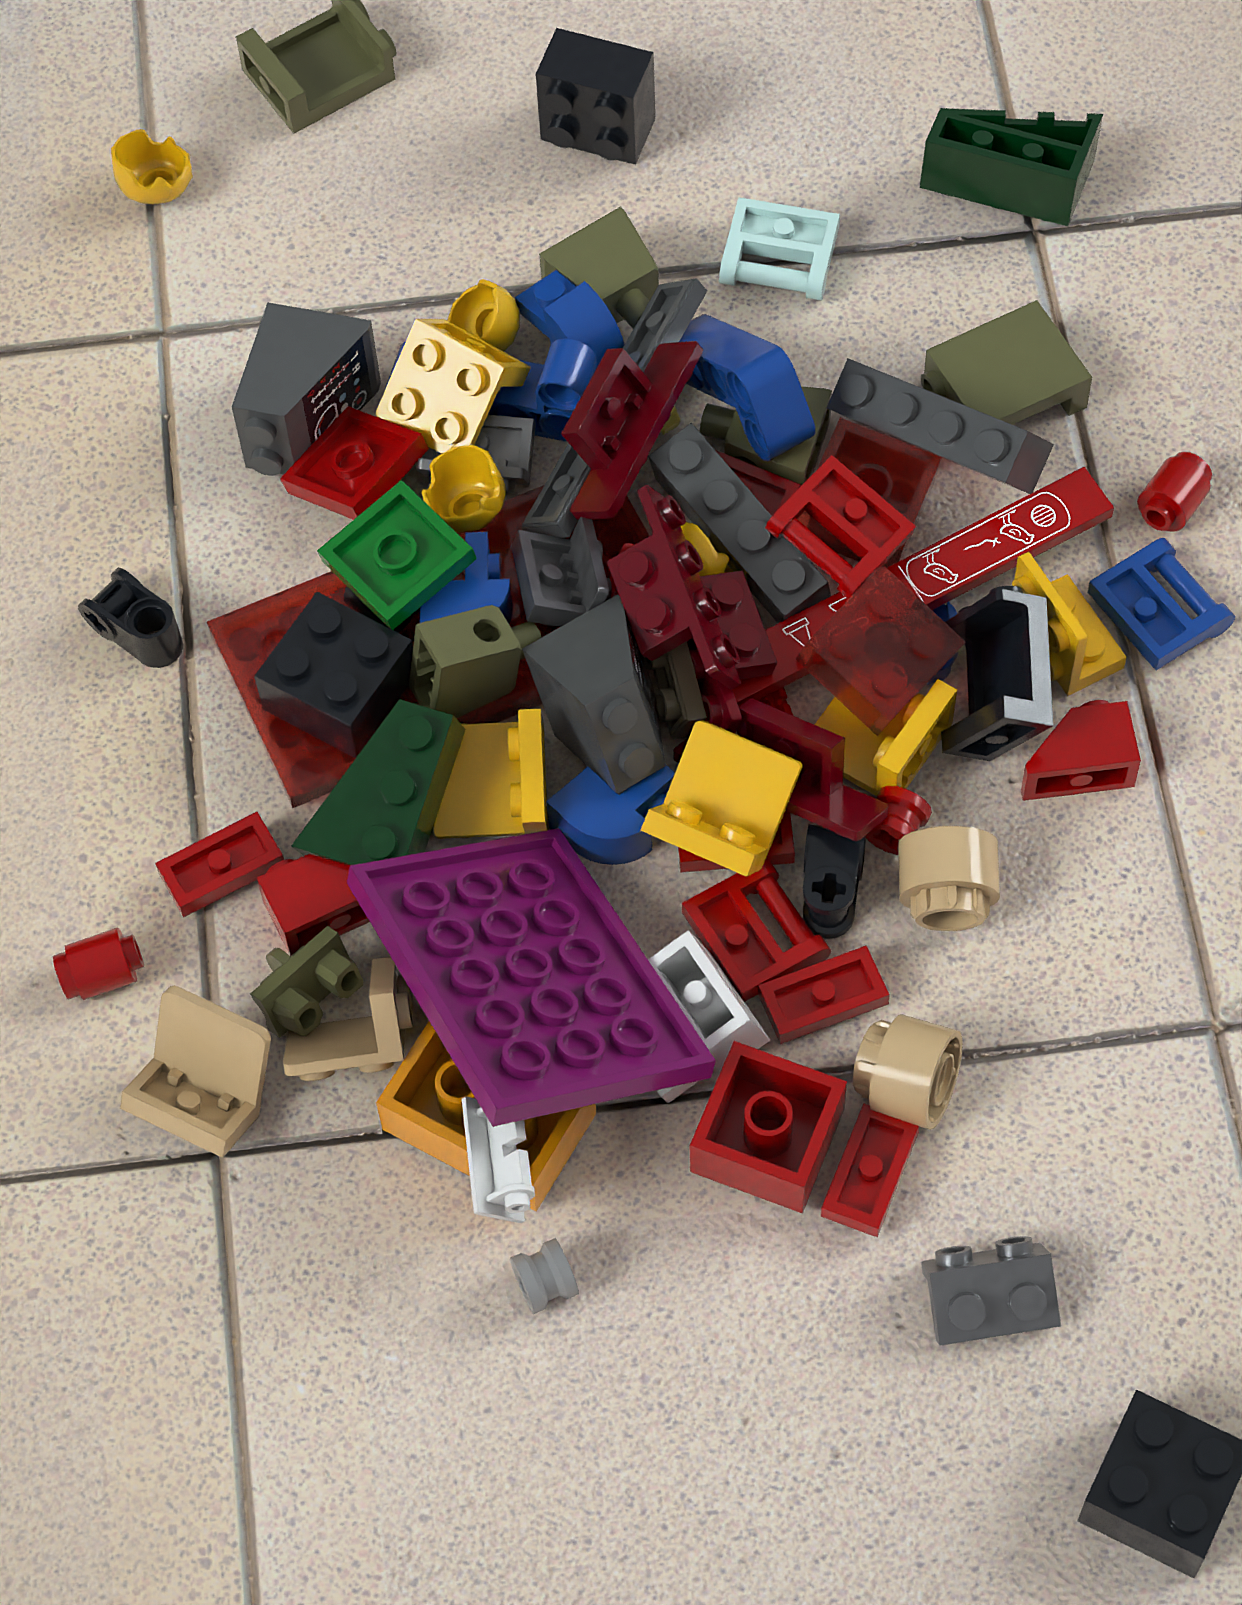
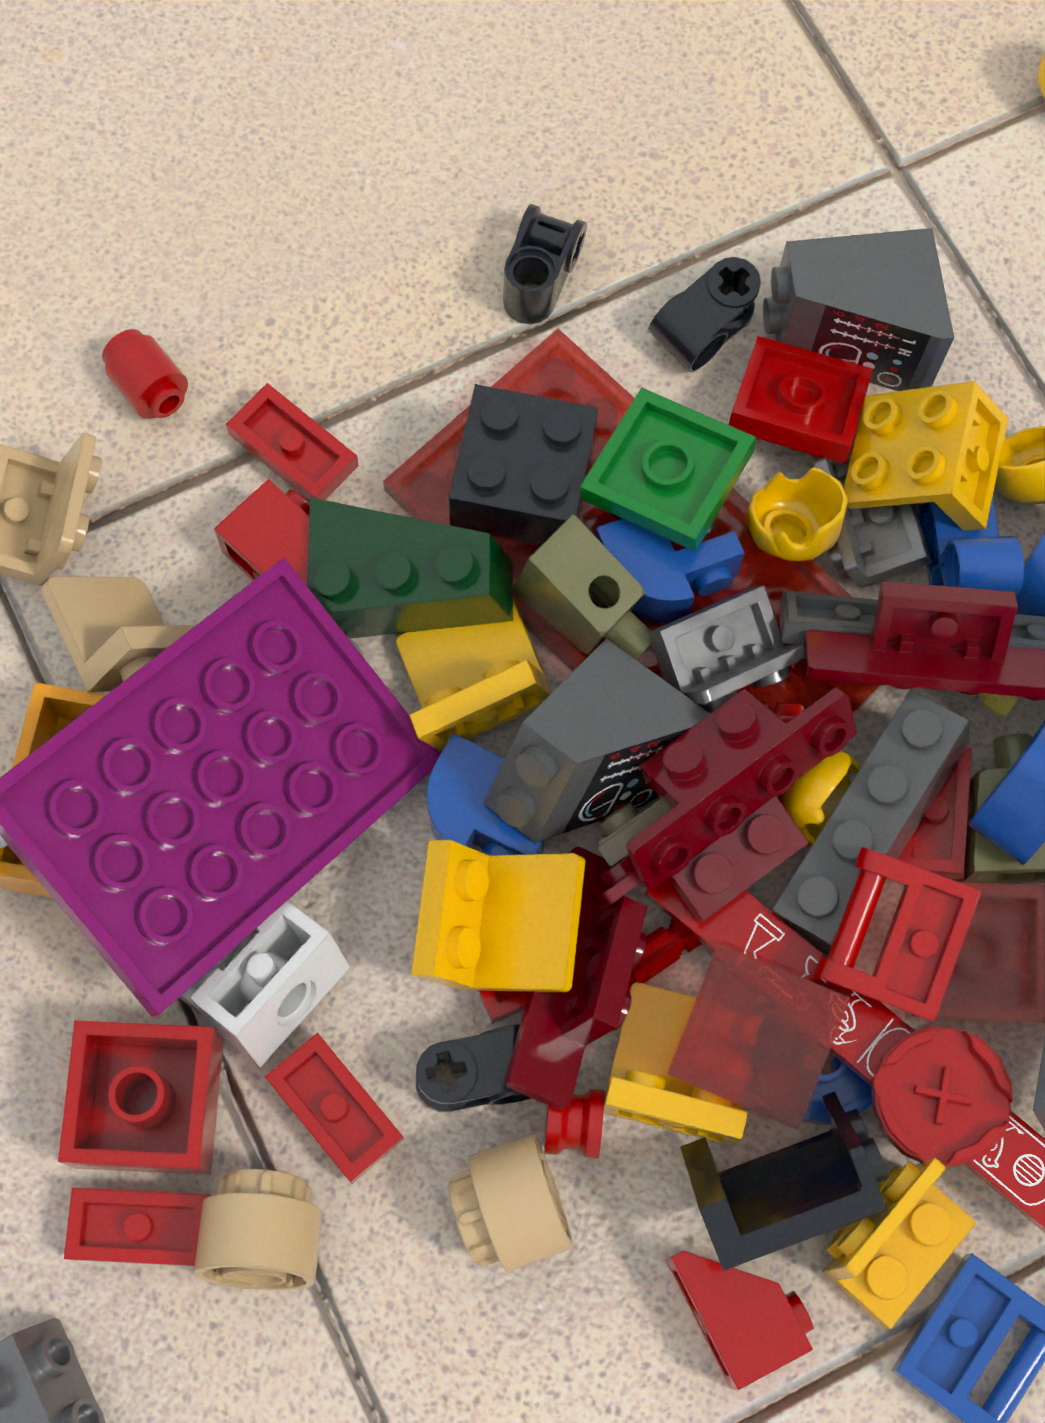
camera: 65 degrees right, 10 degrees up
(243, 506) = (708, 312): none -> black piece
(303, 980) = (178, 565): olive hips -> none
(739, 937) = (371, 997): red plate -> none
(968, 549) = (942, 1096): none -> red tile

